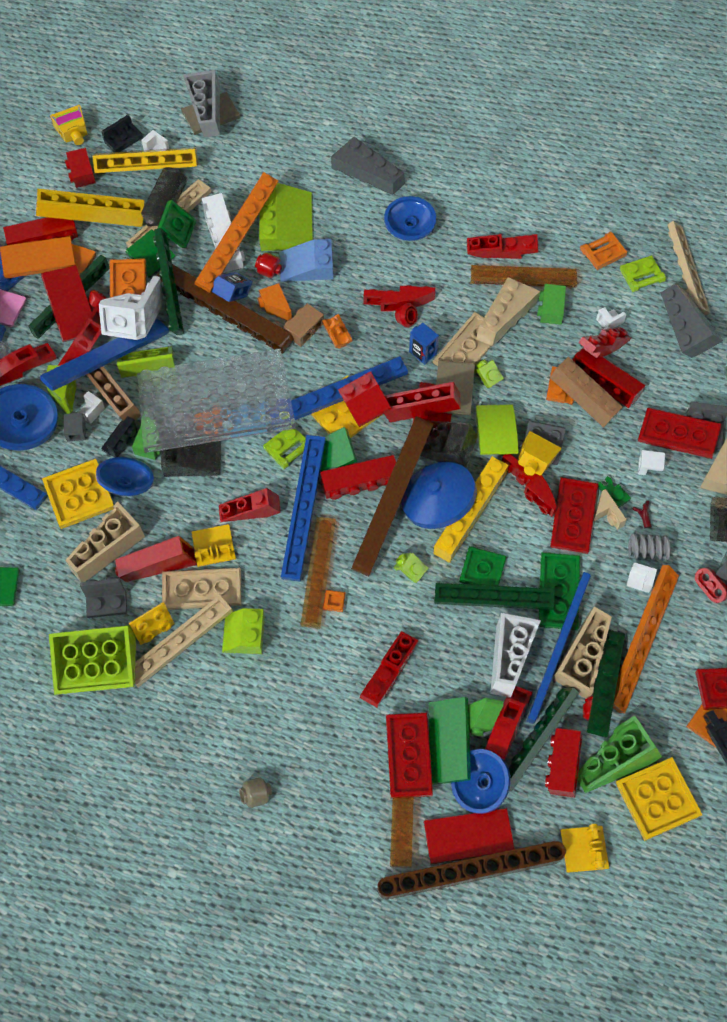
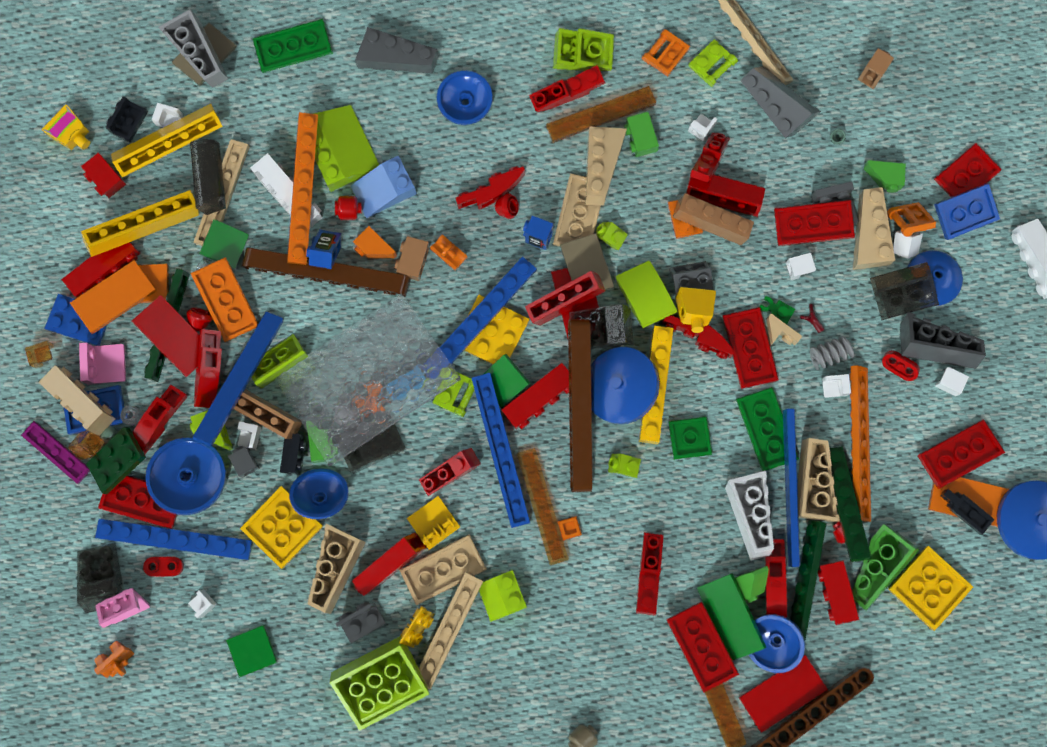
camera: 20 degrees left, 15 degrees up
(131, 314) = (241, 335): white bracket -> none
(167, 275) = (256, 266): dark green plate -> none
(177, 224) = (235, 201): green tile -> none
(285, 132) = (292, 45): none -> green tile
(364, 399) = (511, 319): red slope -> none
(494, 596) = (713, 462): dark green plate -> none
(529, 220) = (583, 50): none -> lime slope
(584, 848) = (885, 660): yellow hinge -> none

